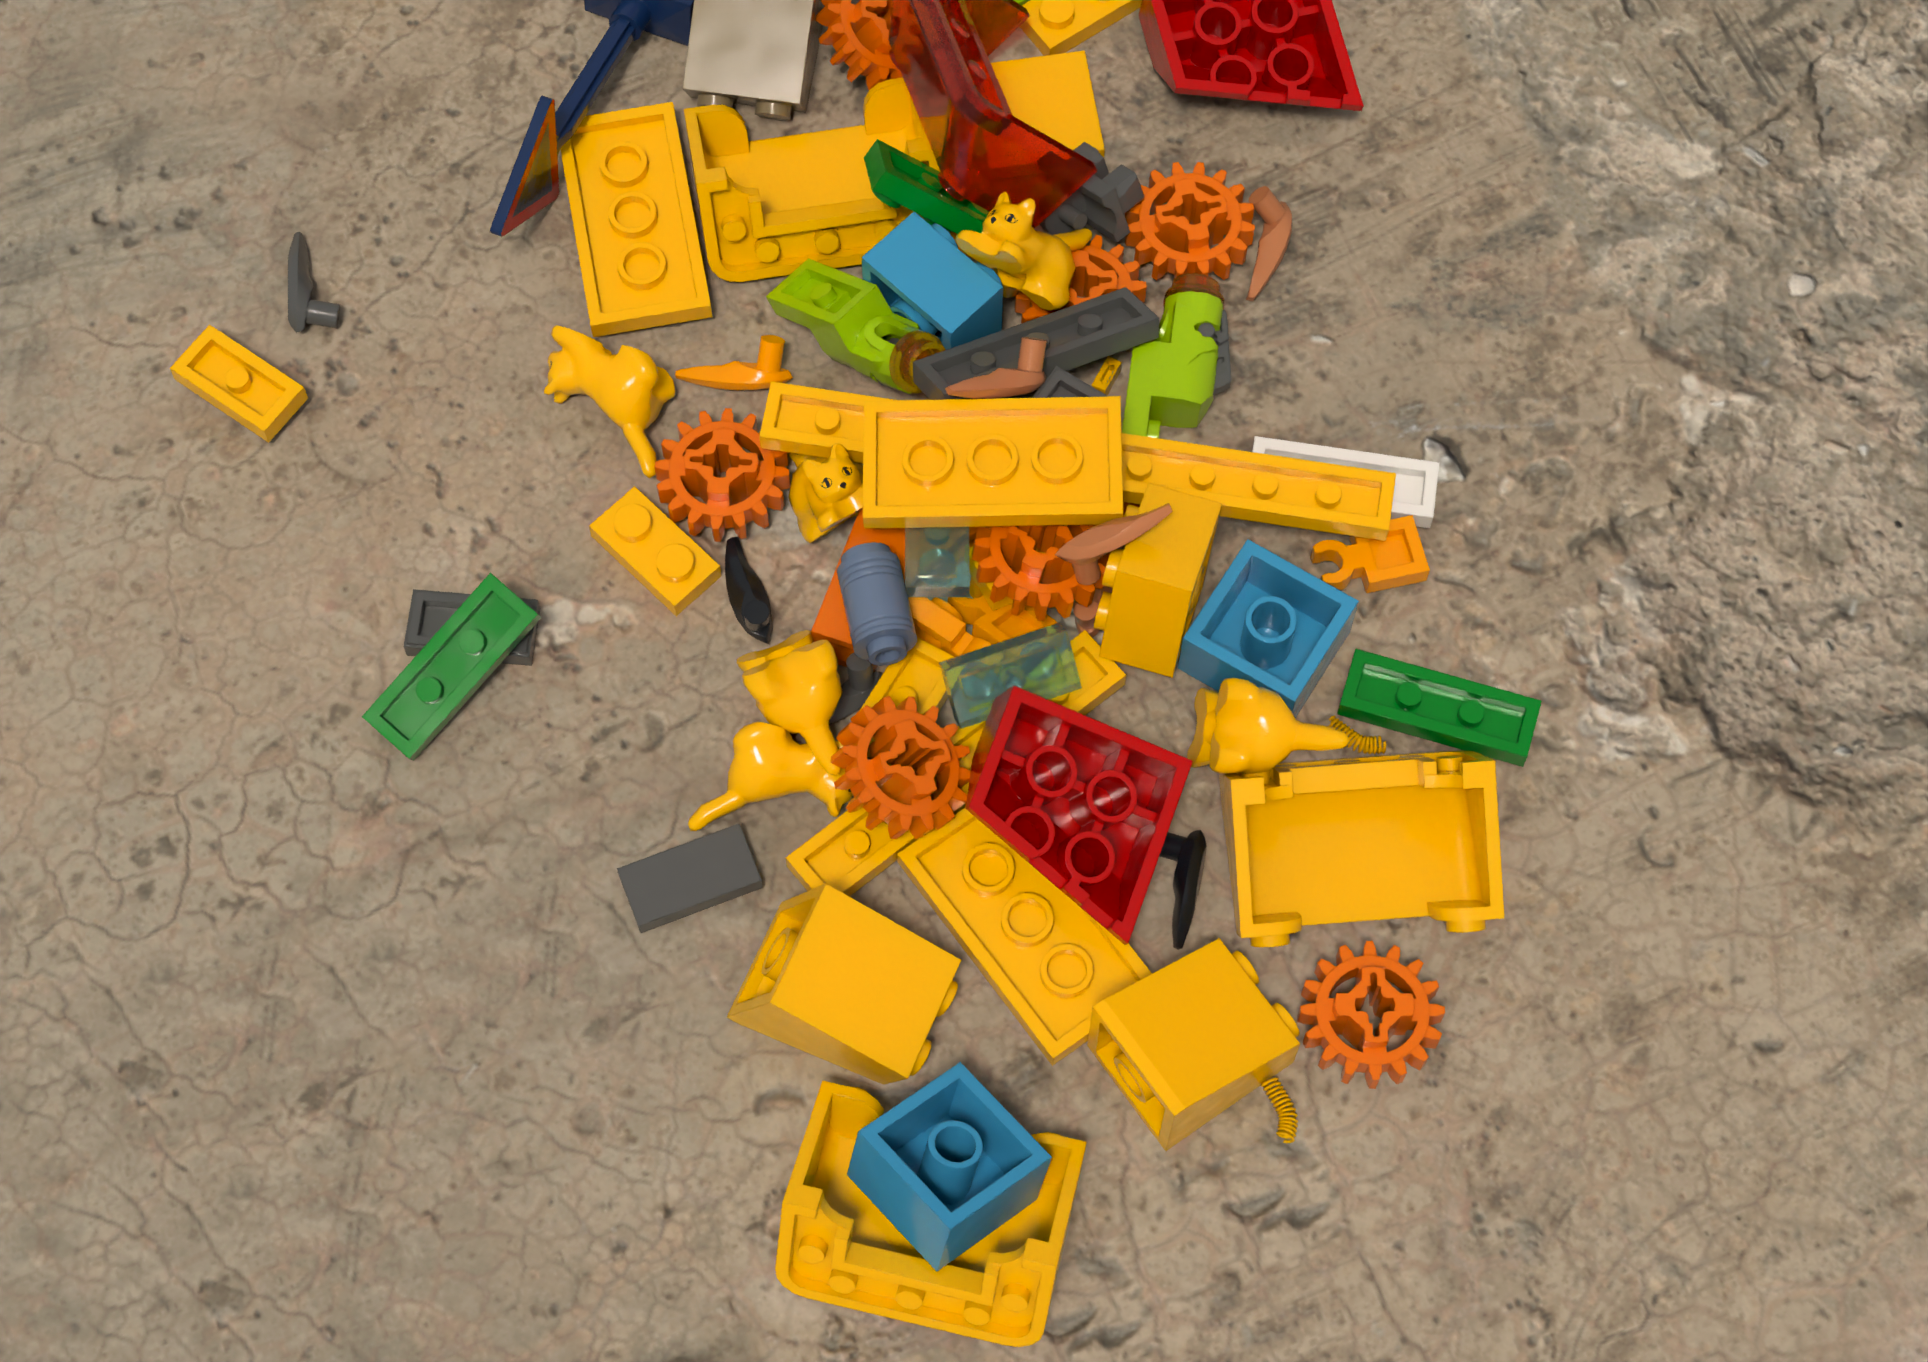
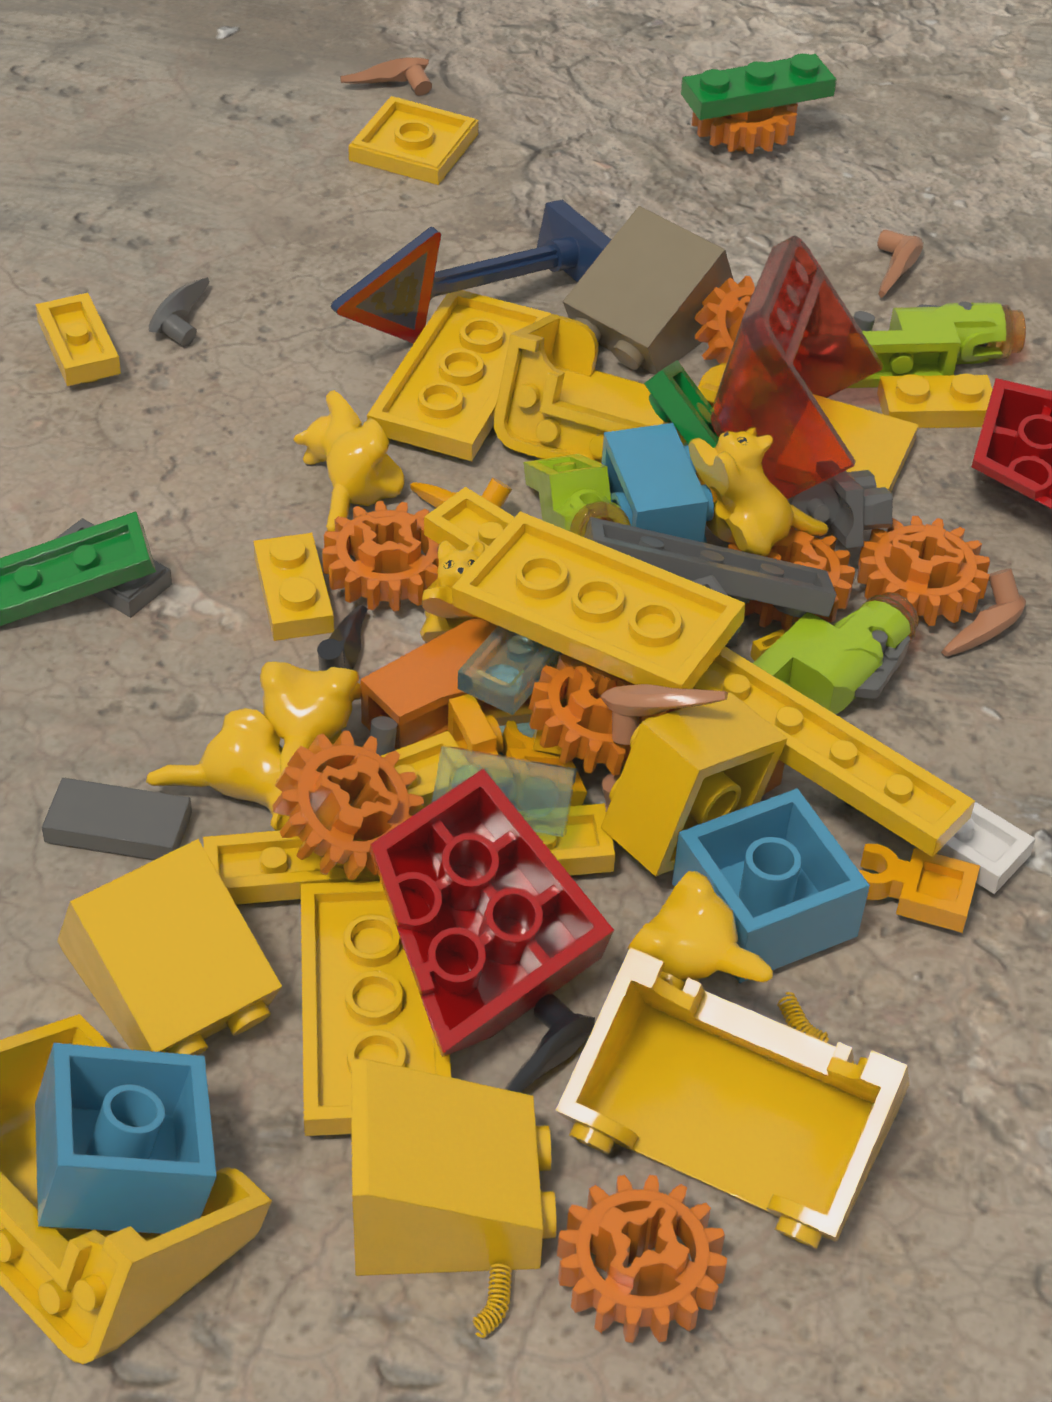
camera: 30 degrees right, 20 degrees down
(876, 604) = (424, 675): sand blue head -> none
(1008, 381) = (679, 563): nougat bar -> none
(1439, 707) = (885, 1018): green plate -> none

